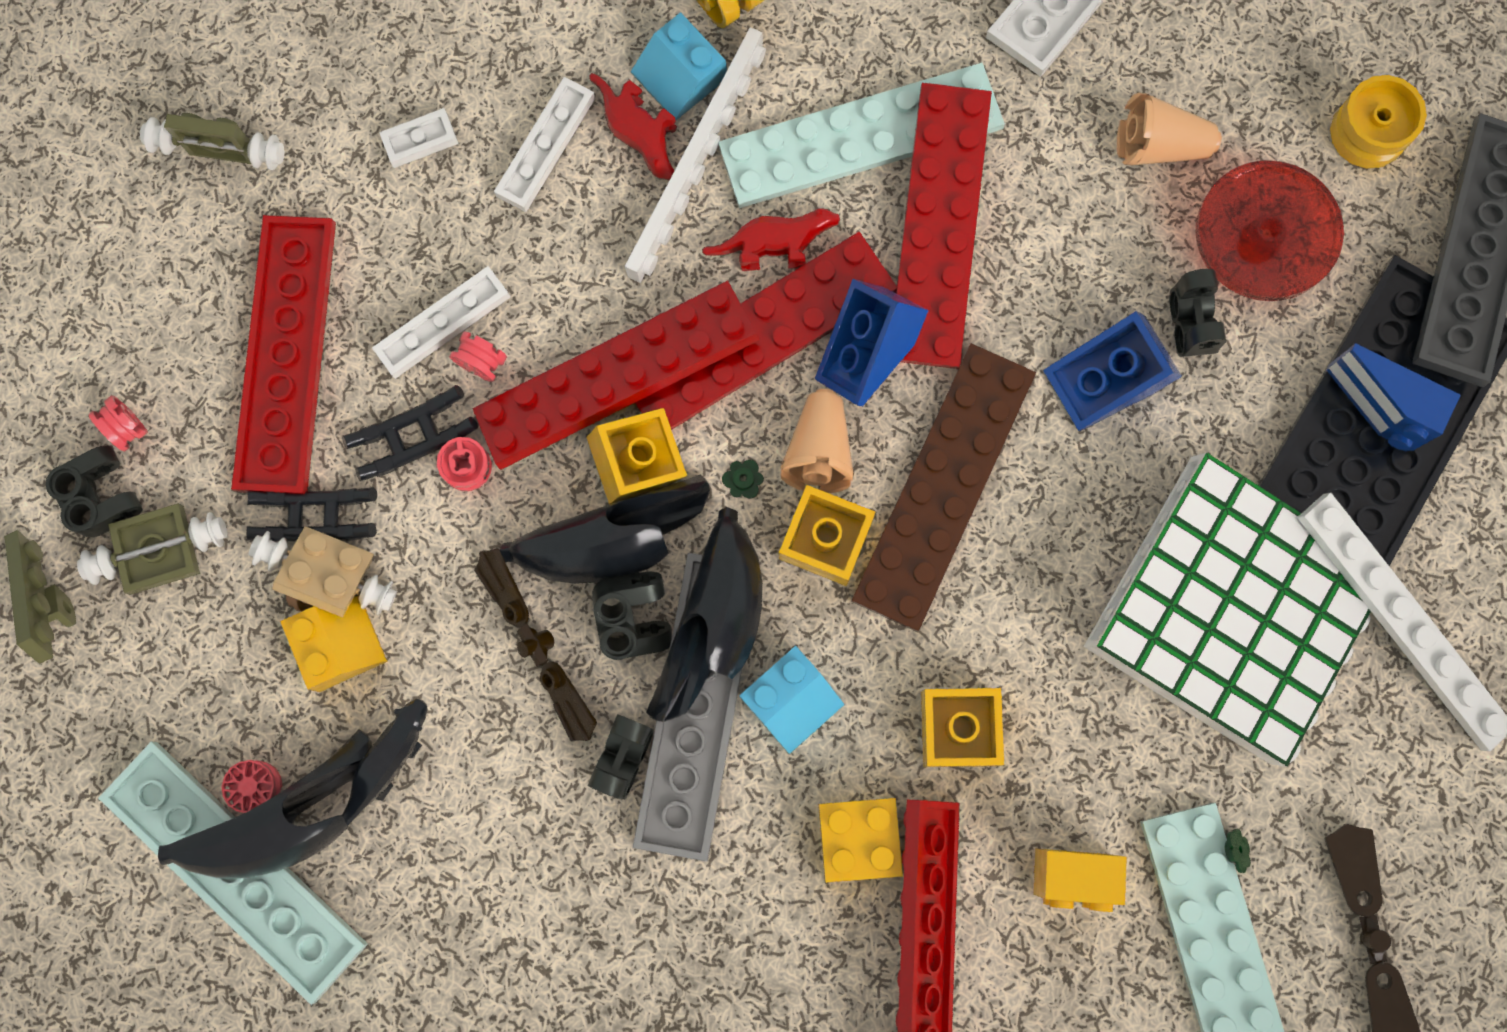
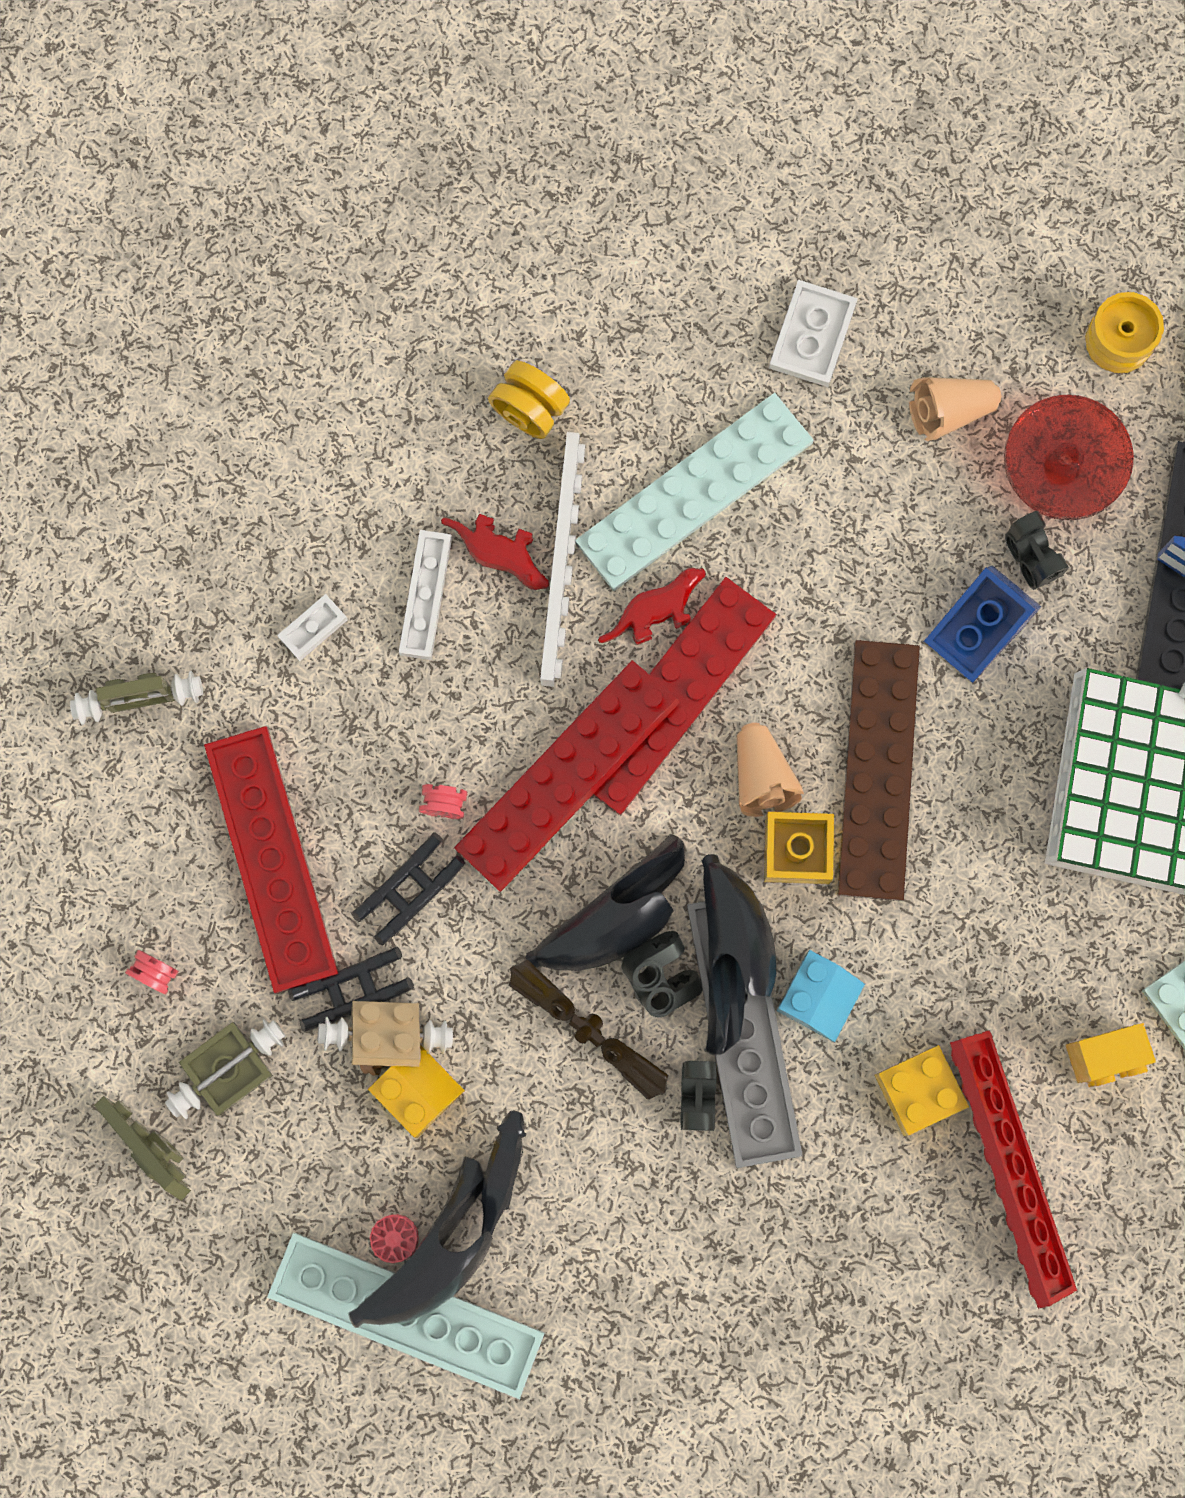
camera: 25 degrees left, 0 degrees up
(83, 497) = (147, 1046): pearl dark grey piece -> none
(441, 322) = (397, 782): white plate -> none
(464, 464) = (466, 898): coral wheel -> none
(636, 455) = (611, 838): yellow slope -> none
(679, 66) = (516, 486): medium azure slope -> none
(747, 488) = (698, 827): dark green plant -> none
(868, 340) = (772, 670): blue slope -> none
(943, 217) = (792, 548): red plate -> none
(962, 727) = (970, 967): yellow brick -> none

